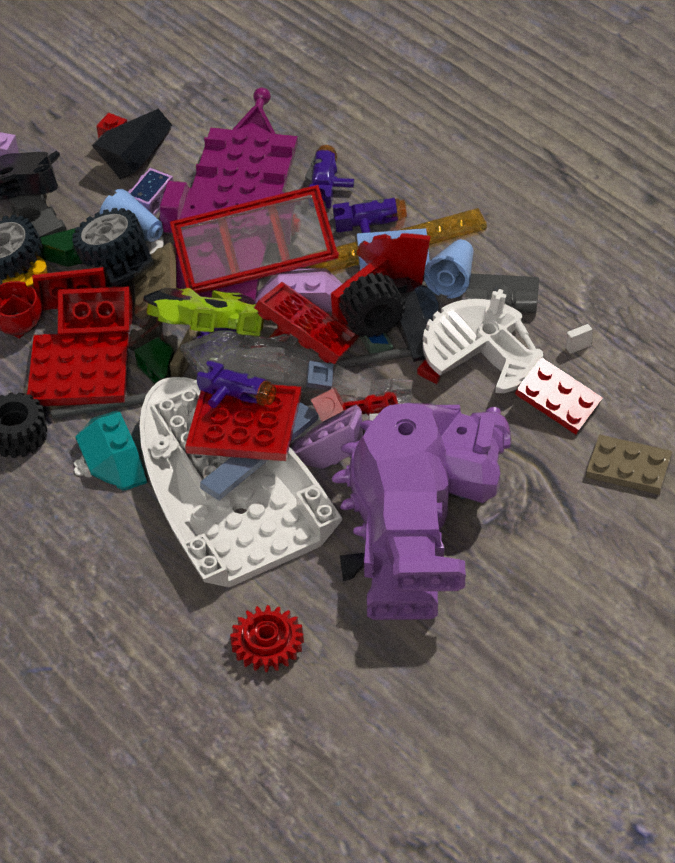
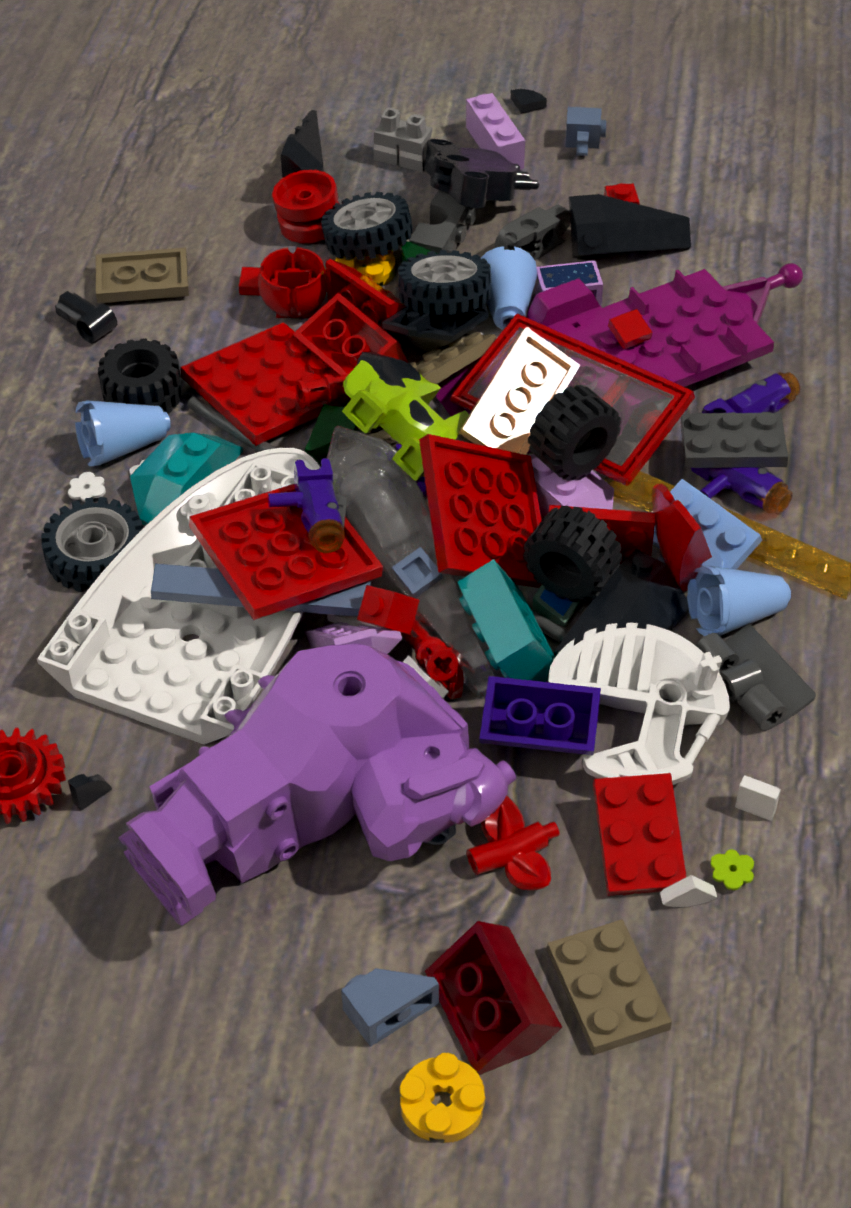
camera: 50 degrees right, 0 degrees up
(24, 106) = (584, 129): none -> sand blue brick
(45, 459) = (117, 429): none -> light blue cone
(71, 499) = (86, 487): none -> white plant
(90, 182) = (535, 231): none -> dark grey piece
(125, 517) = (87, 540): none -> wheel
(128, 338) = (327, 389): none -> red pin
(228, 185) = (630, 329): none -> red tile
(240, 257) = (517, 392): none -> plate
(298, 249) = (574, 432): none -> black tyre
(308, 611) = (87, 789): none -> black tile
(352, 196) = (733, 440): none -> dark grey plate
(381, 360) = (506, 624): none -> teal brick
(457, 383) = (540, 715): none -> dark purple slope
(520, 453) = (514, 848): none -> red plant
(563, 554) = (387, 1001): none -> sand blue slope
(599, 511) = (492, 997): none -> dark red slope
(607, 376) = (732, 869): none -> lime plant
(607, 400) = (688, 892): none -> white tile
(639, 552) = (437, 1121): none -> yellow plate

